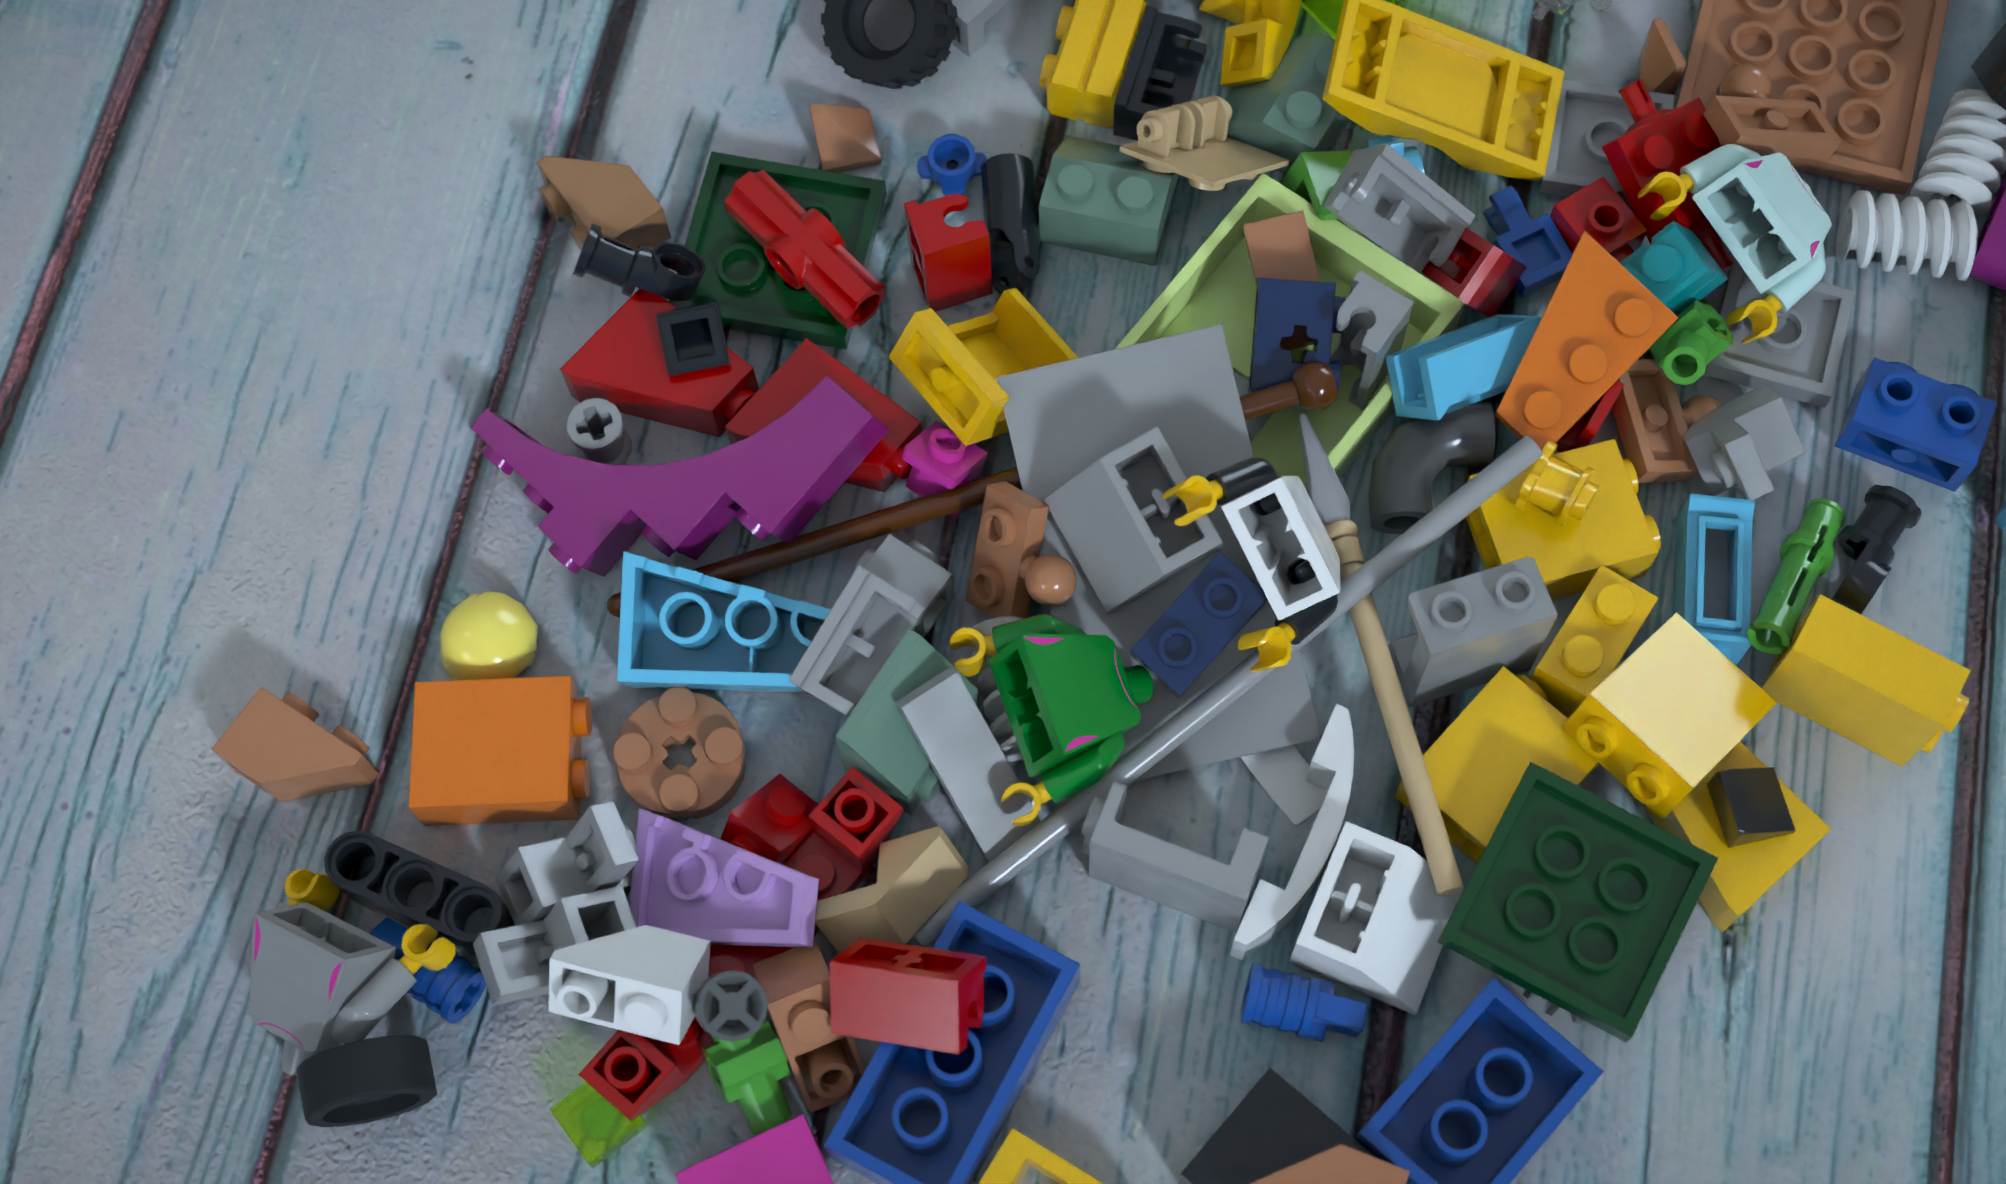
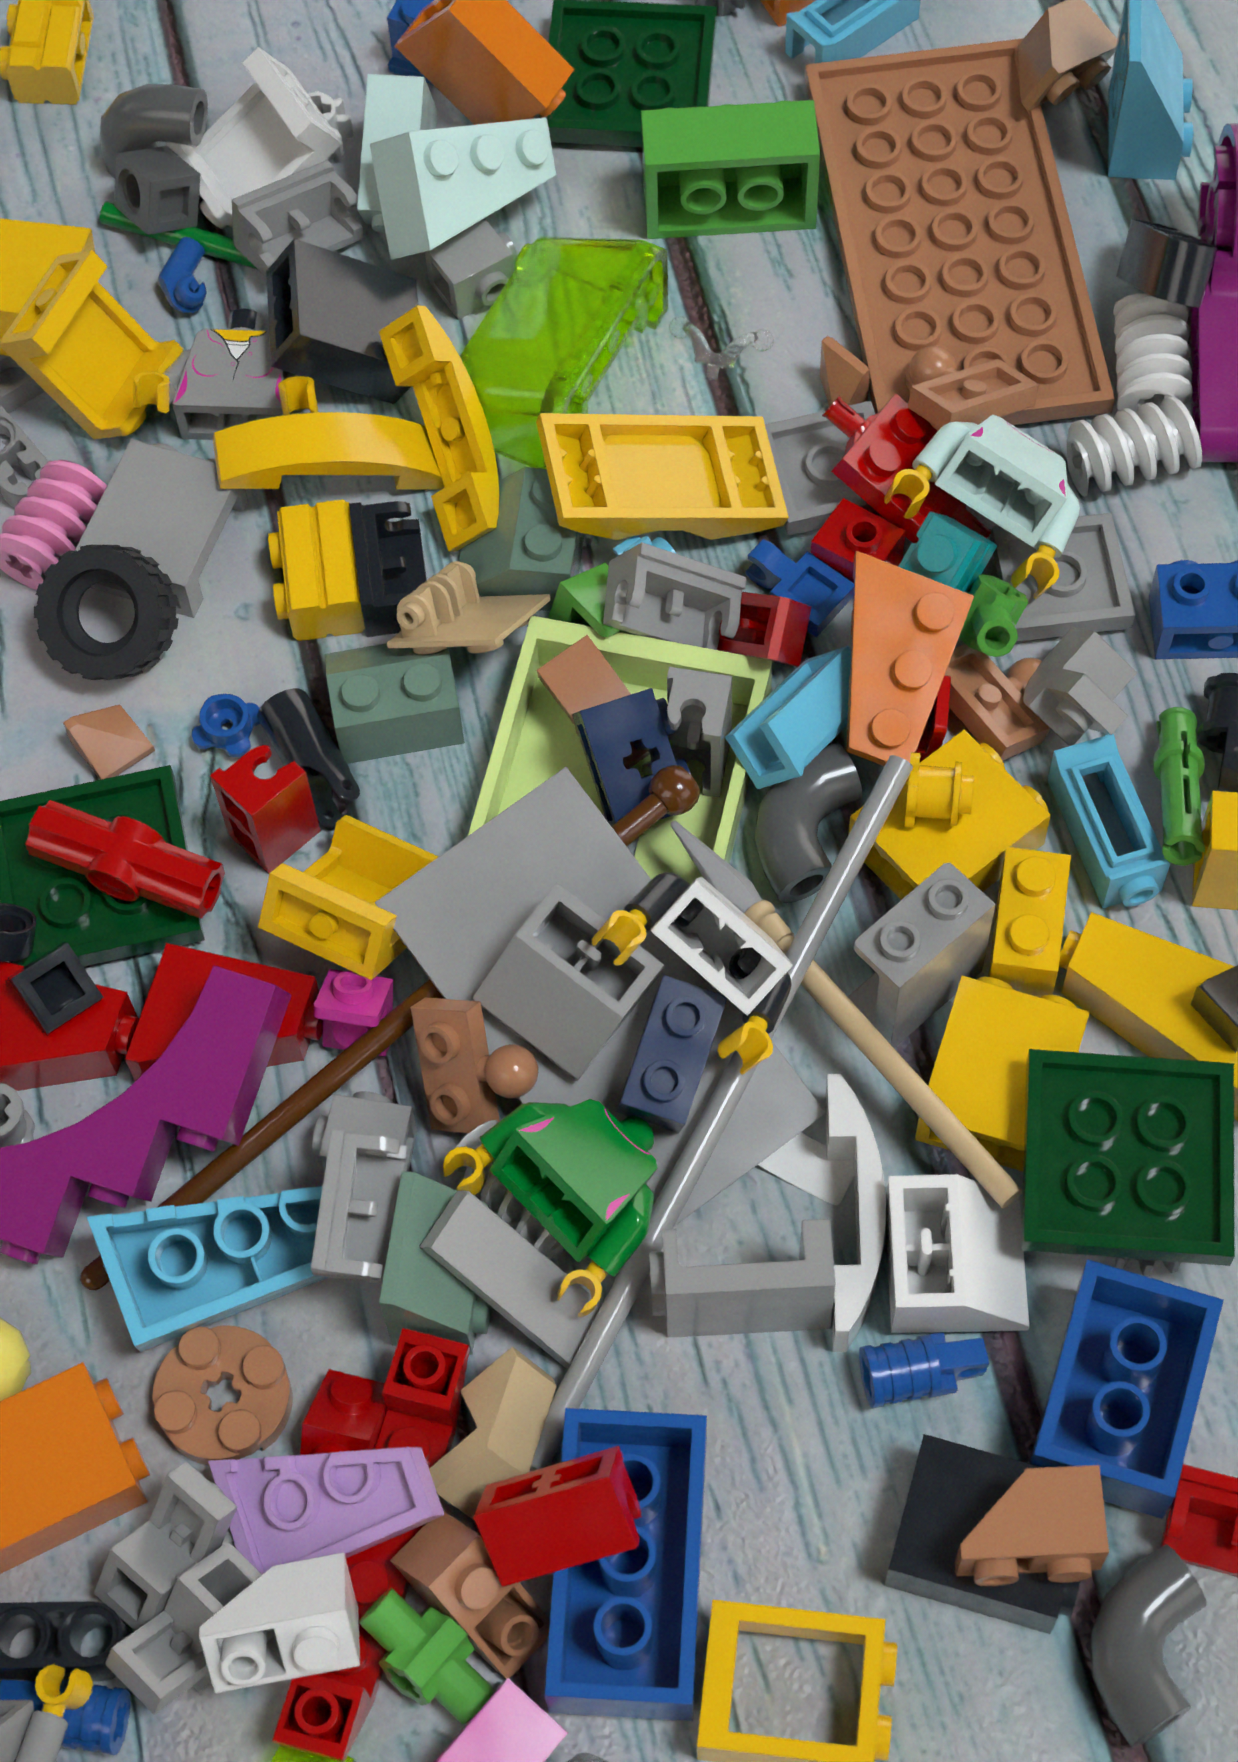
camera: 25 degrees left, 5 degrees down
(747, 1005) = (401, 1590): dark grey wheel -> none
(1668, 715) = (1129, 957): panel -> none

